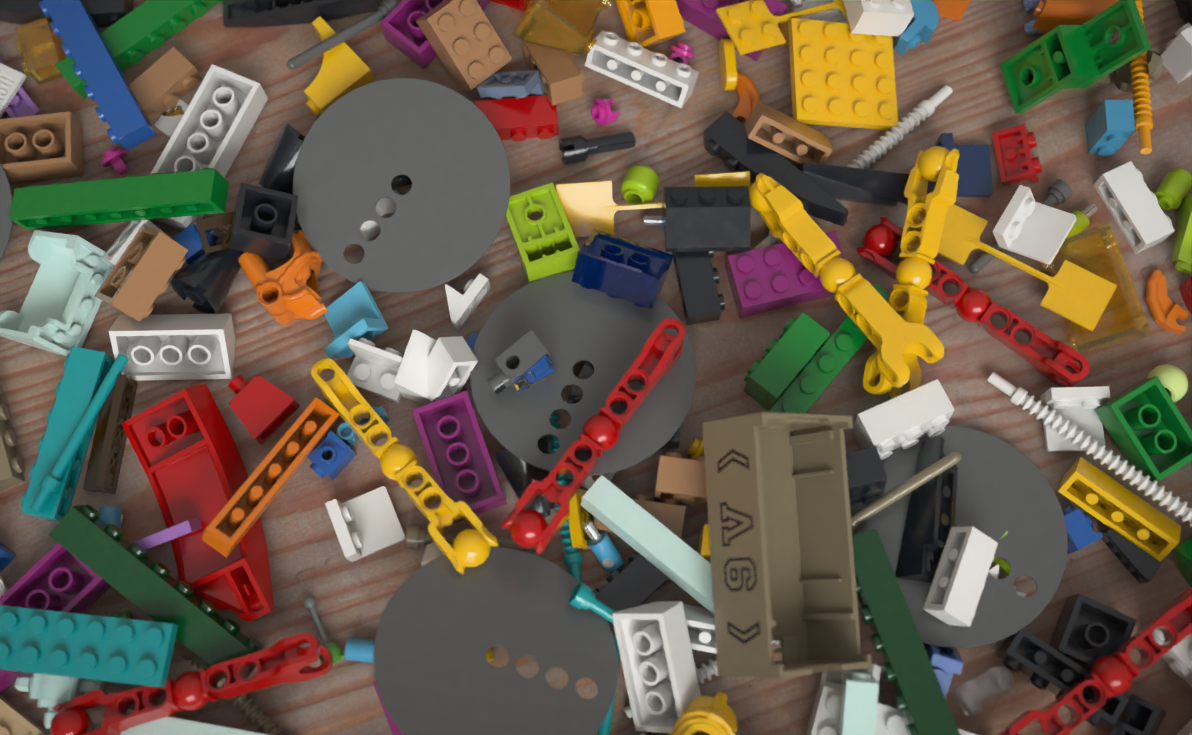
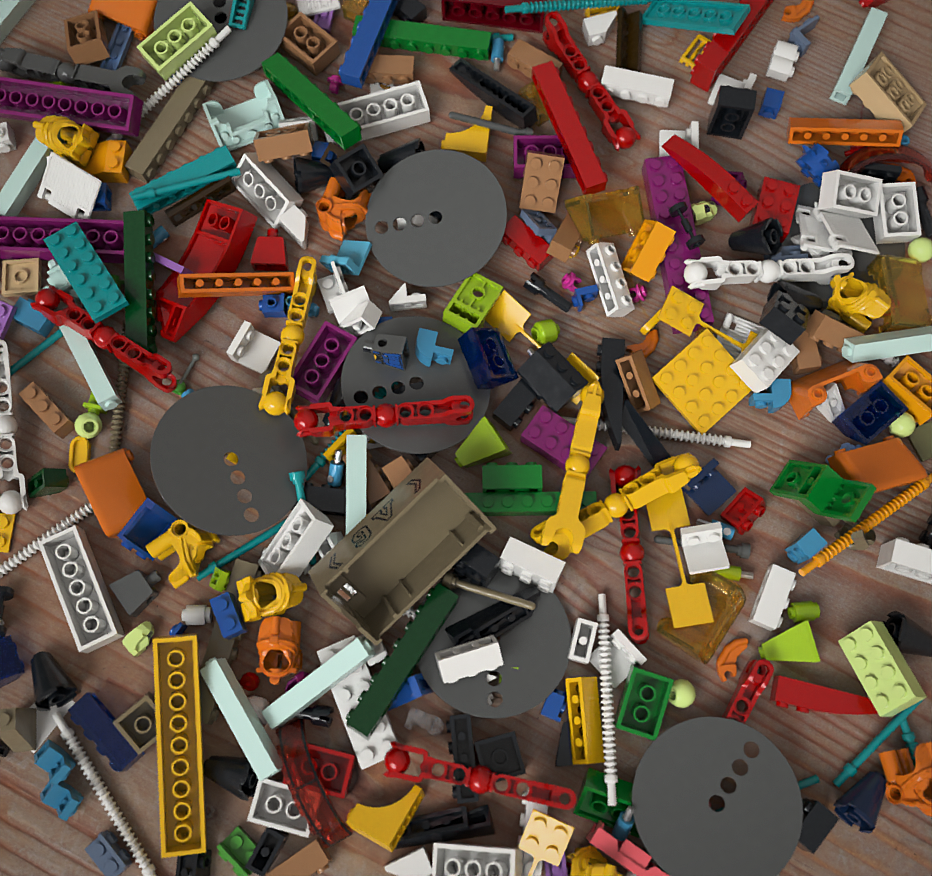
camera: 50 degrees right, 0 degrees up
(252, 349) = (296, 225): none -> white slope
(554, 324) = (427, 350): none -> dark azure brick
(632, 113) = (584, 294): none -> blue bracket
(716, 360) = (482, 445): none -> lime slope
(1005, 197) = (727, 530): none -> dark azure piece
(1030, 437) = (582, 640): none -> white brick

